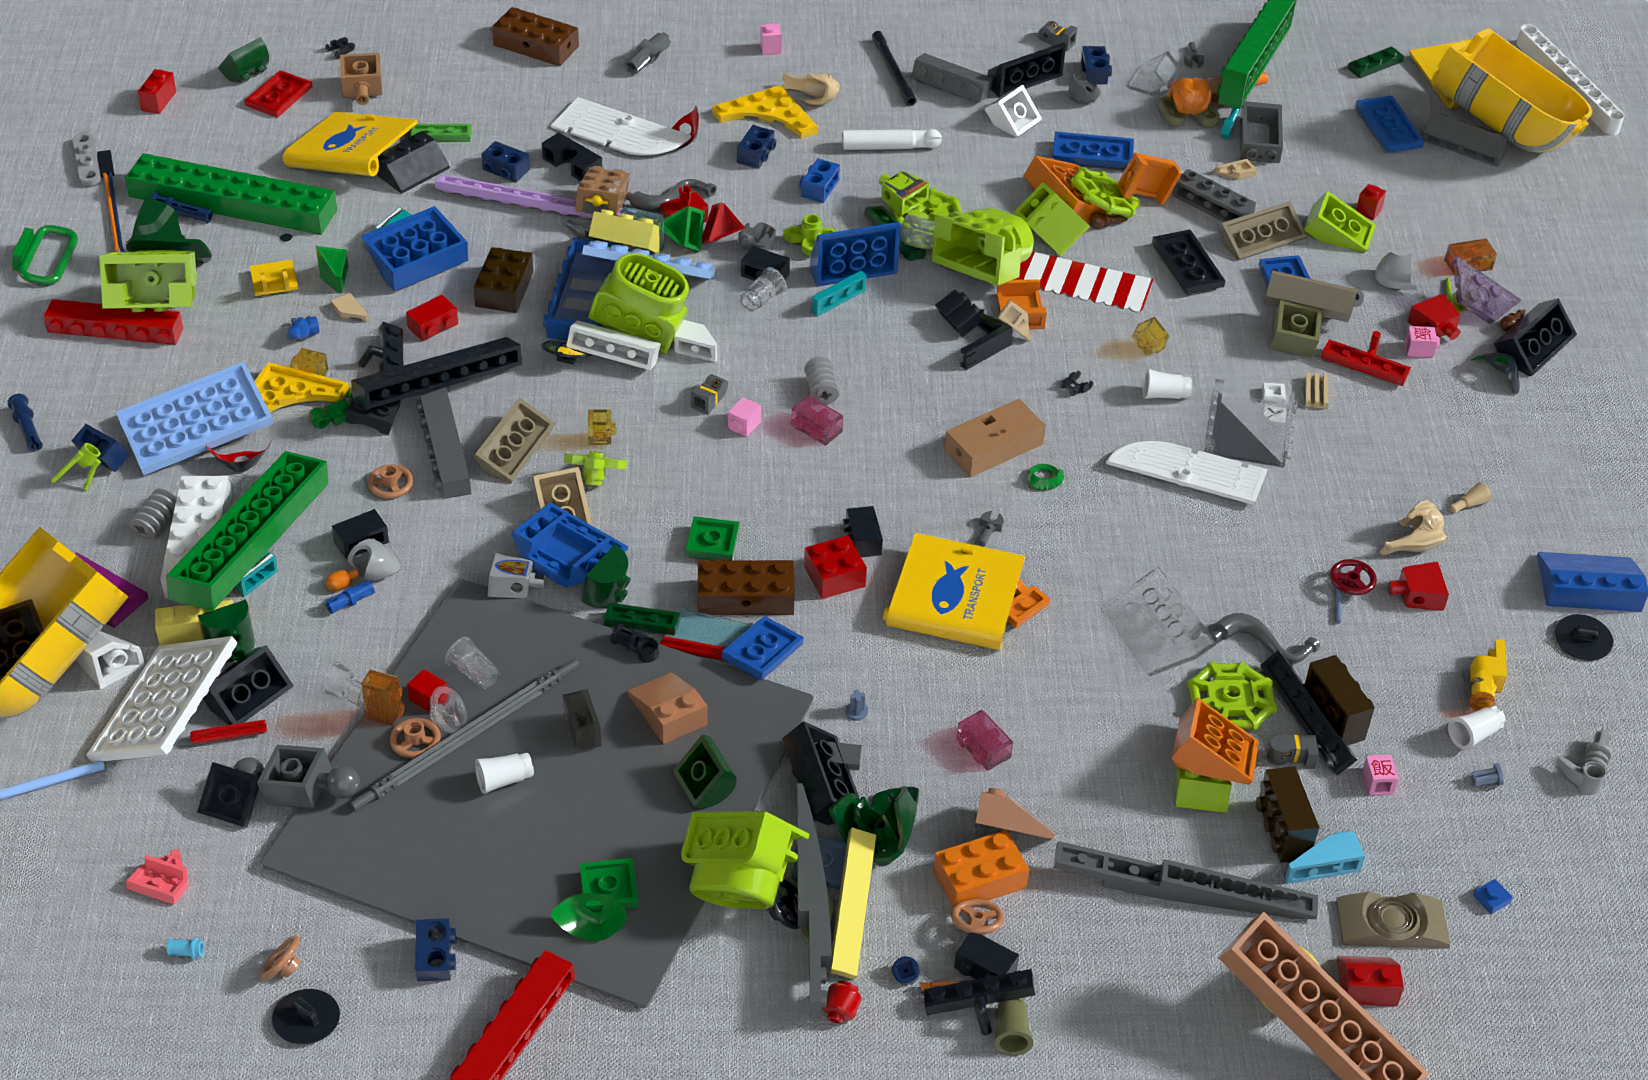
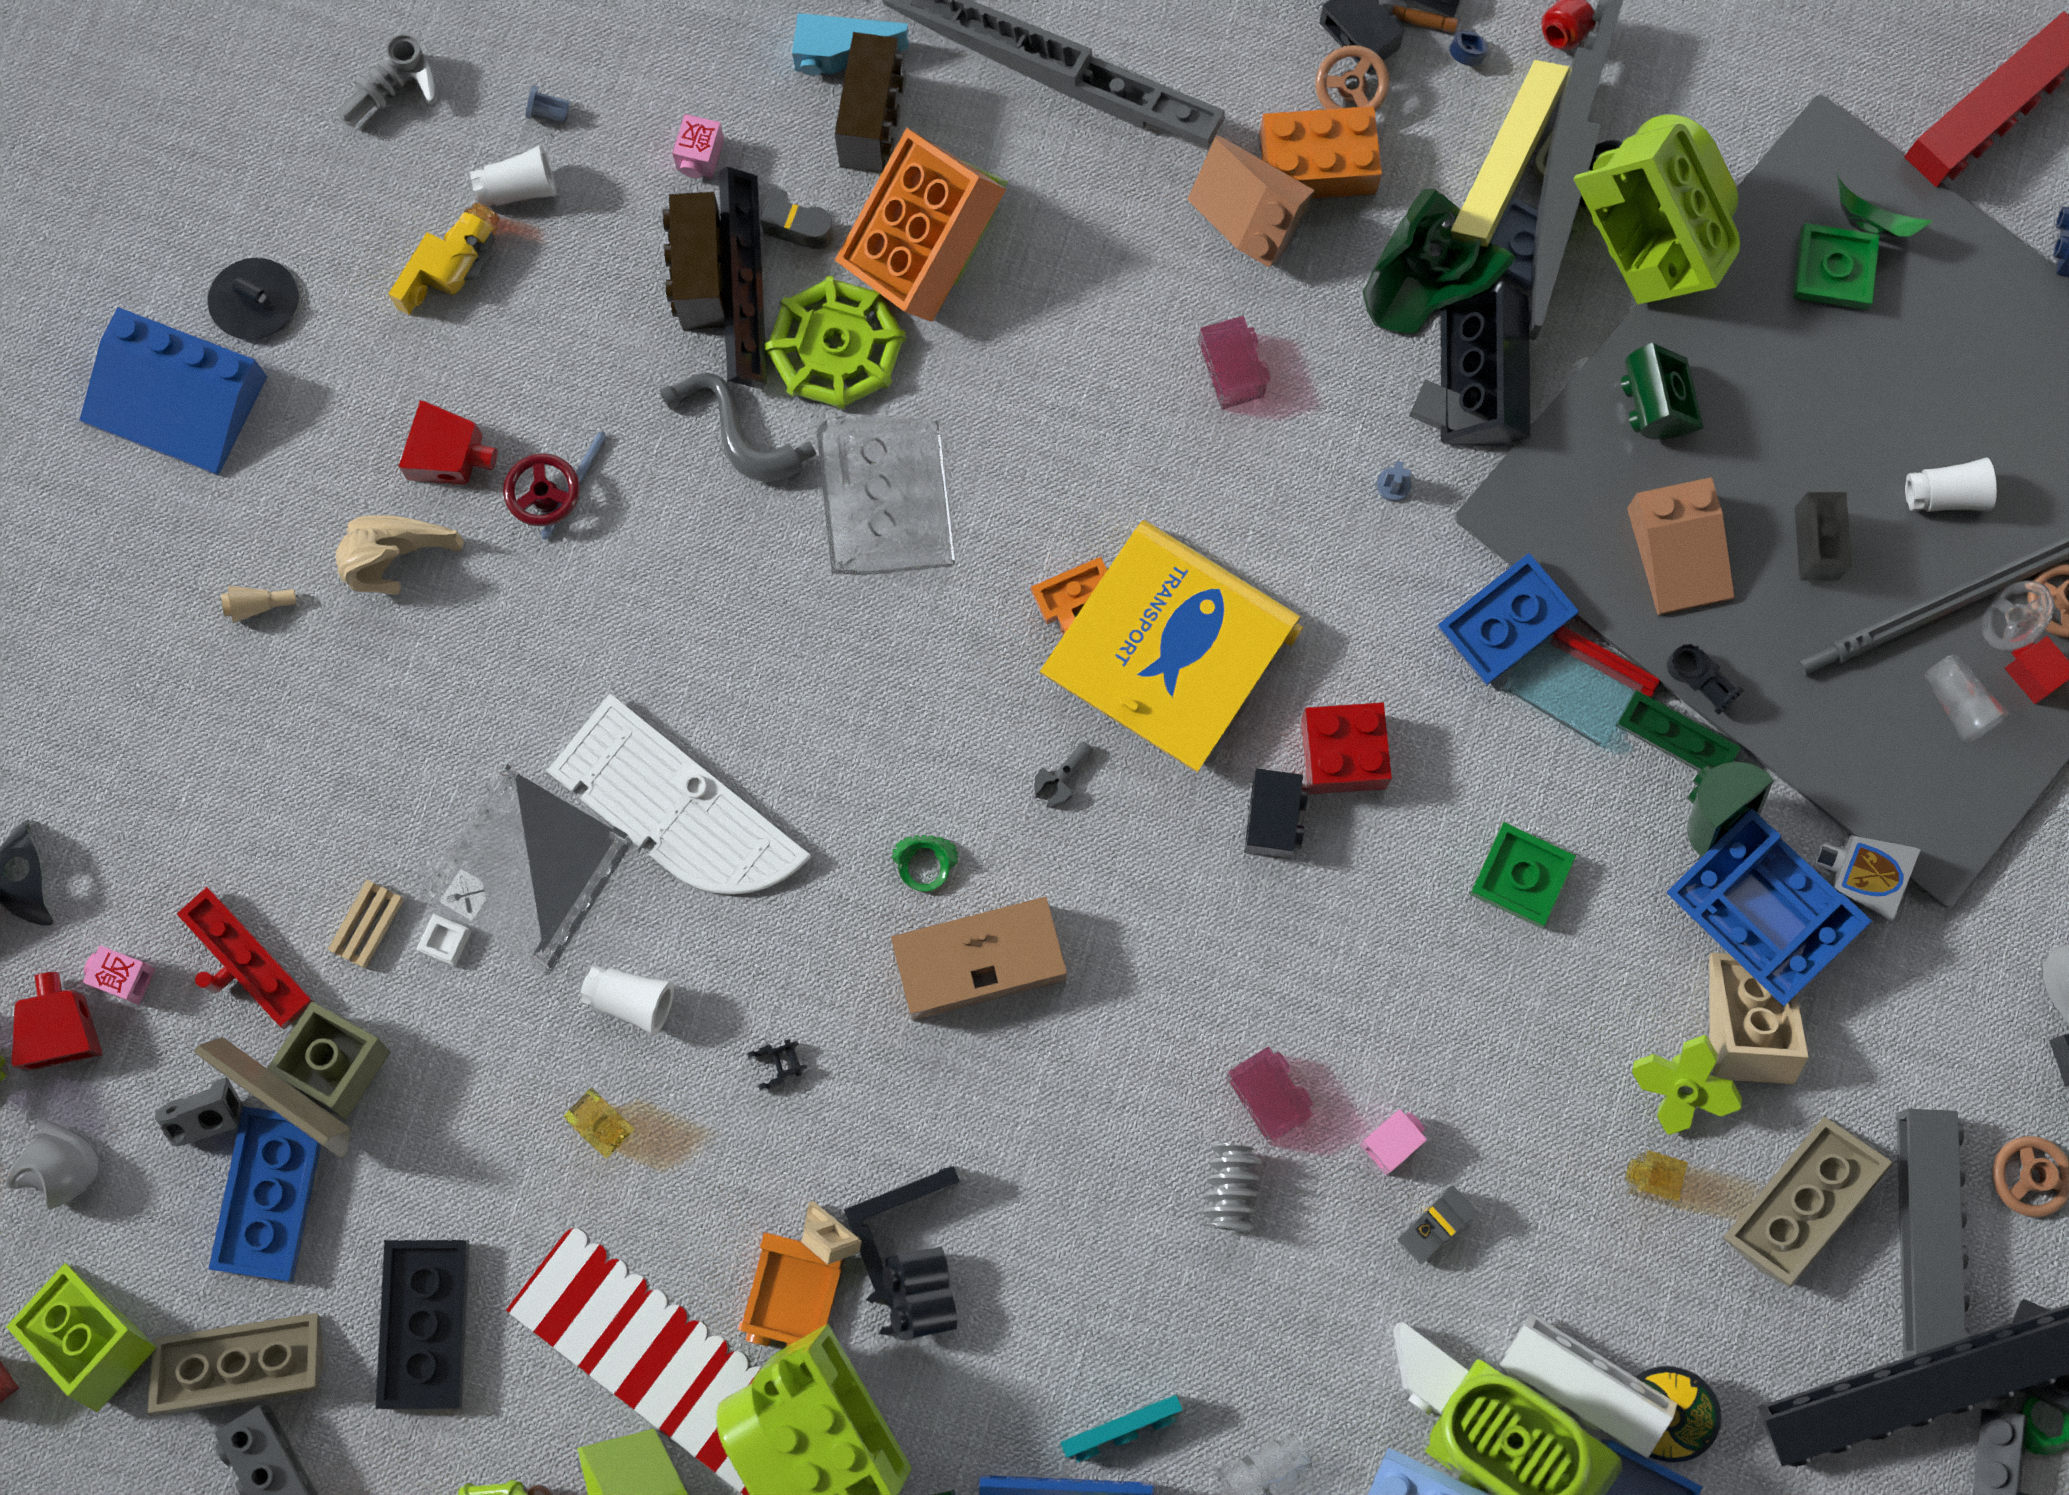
camera: 160 degrees left, 30 degrees up
(746, 587) = (1501, 747): reddish brown brick -> none

